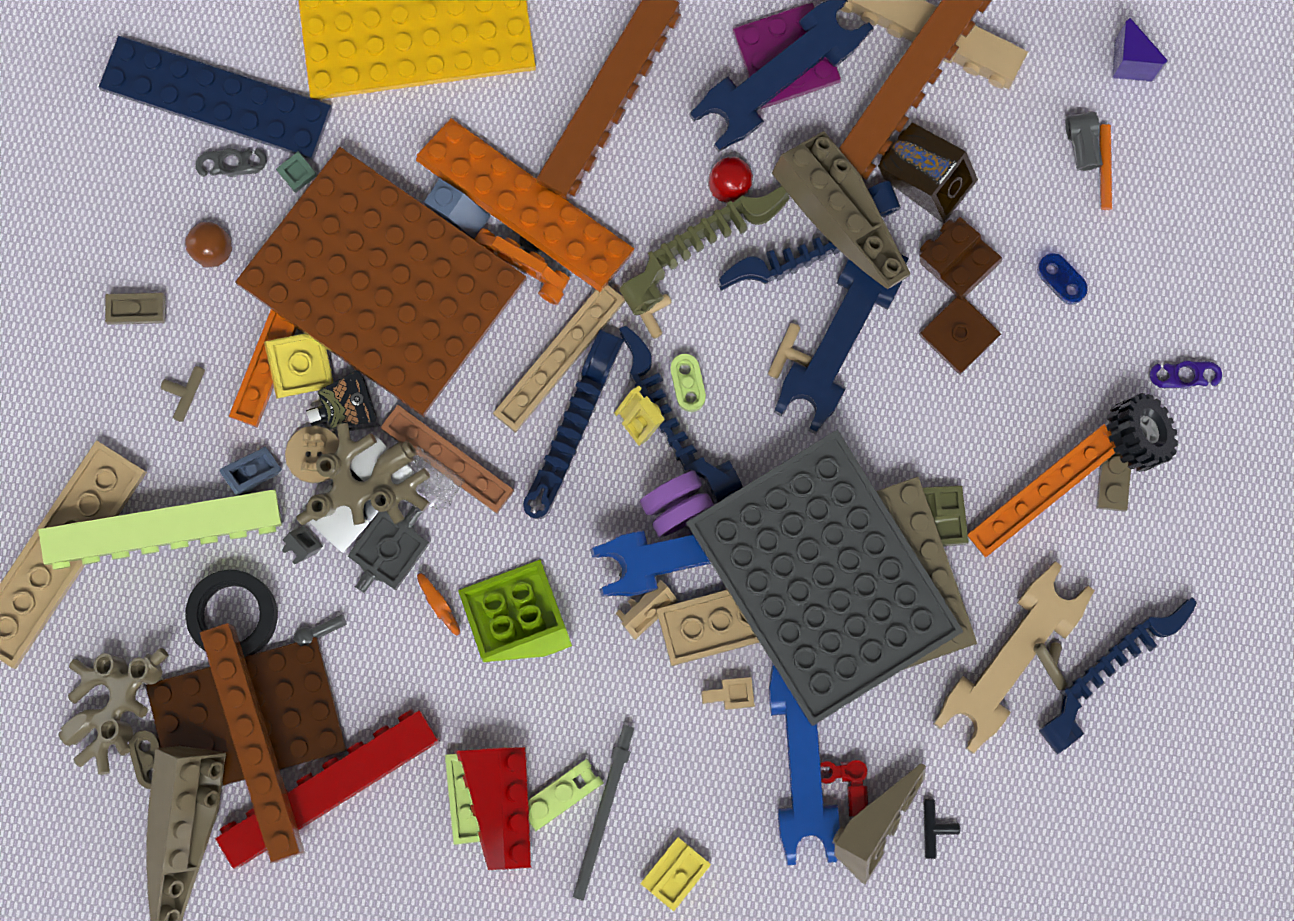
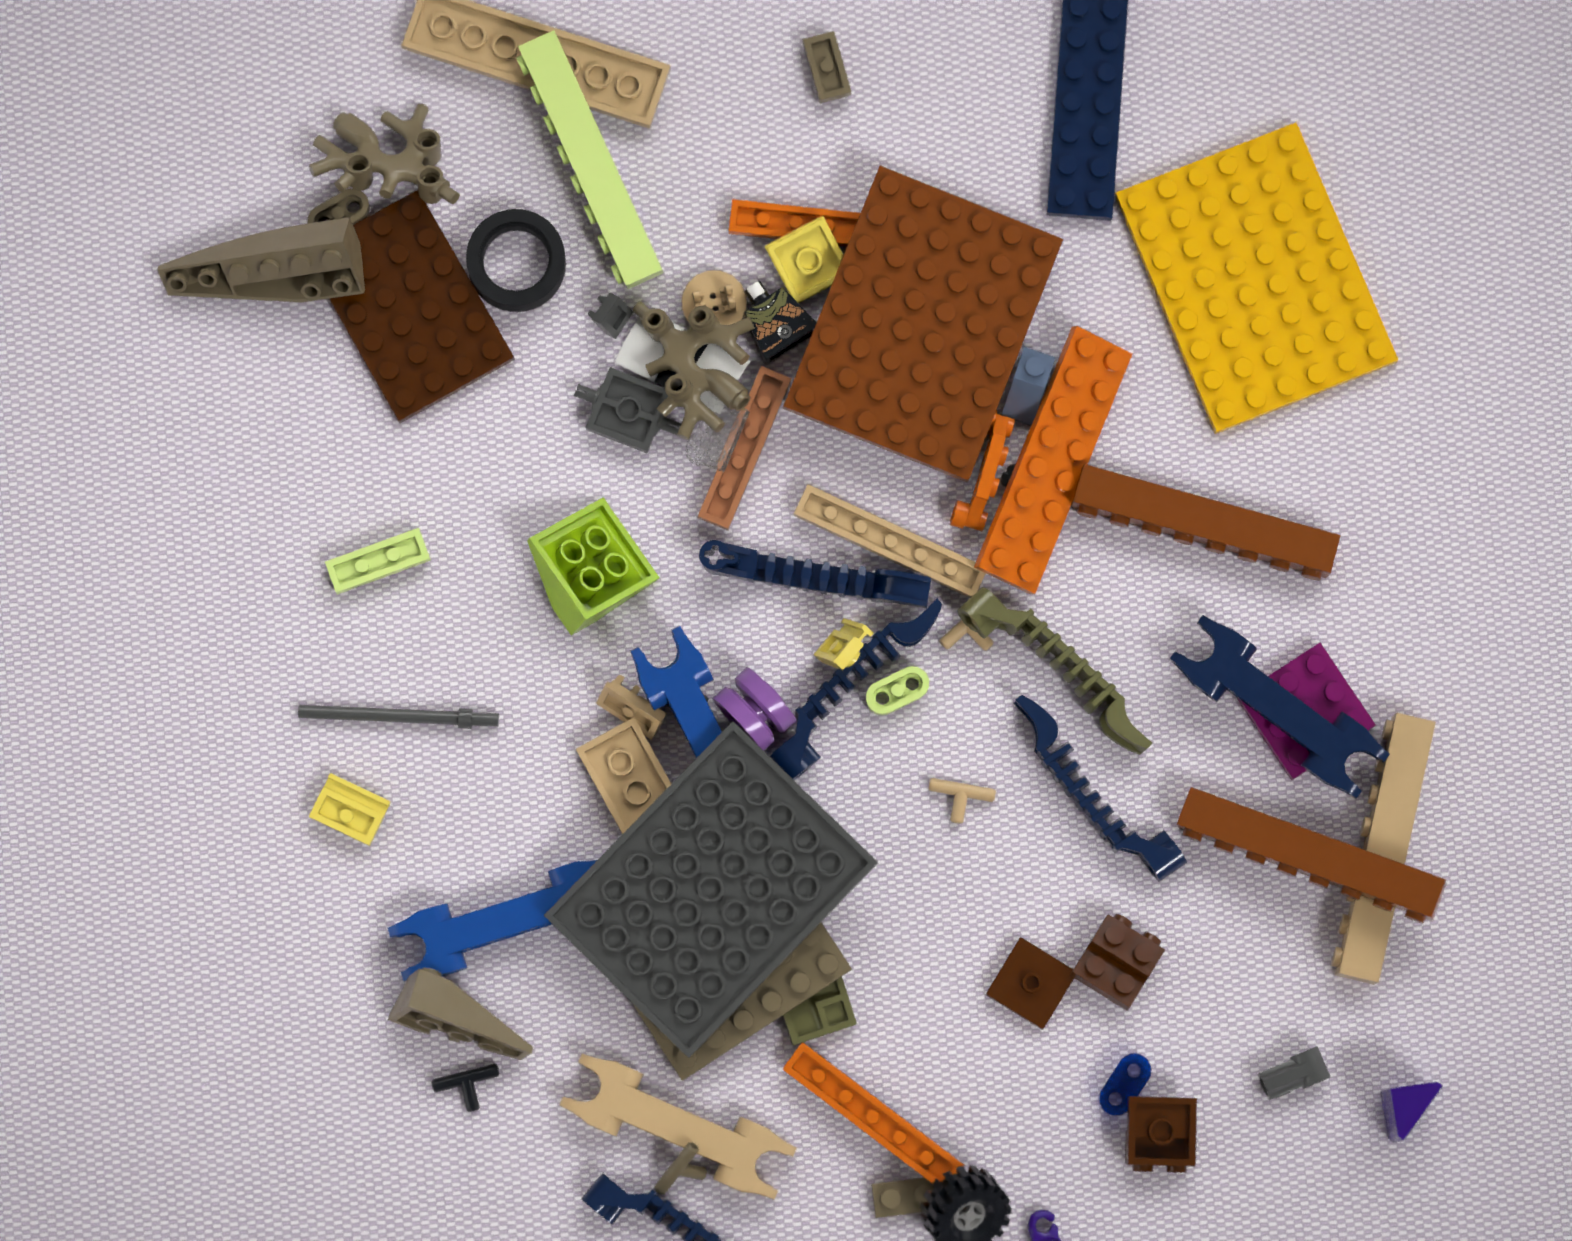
camera: 70 degrees right, 0 degrees up
(186, 393) = (748, 147): dark tan piece -> none
(208, 244) = (919, 126): dark orange hair -> none
(218, 158) = (1019, 111): dark grey piece -> none
(250, 471) = (676, 238): sand blue slope -> none
(252, 743) = (380, 317): dark orange brick -> none
(296, 172) = (1025, 200): sand green plate -> none
(304, 635) = (513, 344): dark grey bar -> none
(336, 783) = (353, 412): red brick -> none
(438, 604) = (581, 479): orange piece -> none
(500, 804) = (379, 599): red wedge -> none
(561, 795) = (405, 664): yellowish green plate -> none
(730, 179) = (1144, 682): red hair -> none
(734, 693) = (562, 825): tan plate -> none
(817, 380) = (1052, 863): dark blue piece -> none
(841, 207) = (1137, 809): dark tan wedge -> none
(853, 772) = (506, 981): red bar -> none
(928, 171) = (1209, 902): dark brown slope -> none
(1106, 168) = (1270, 1106): orange bar -> none
(1111, 258) = (1161, 1133): none -> reddish brown plate

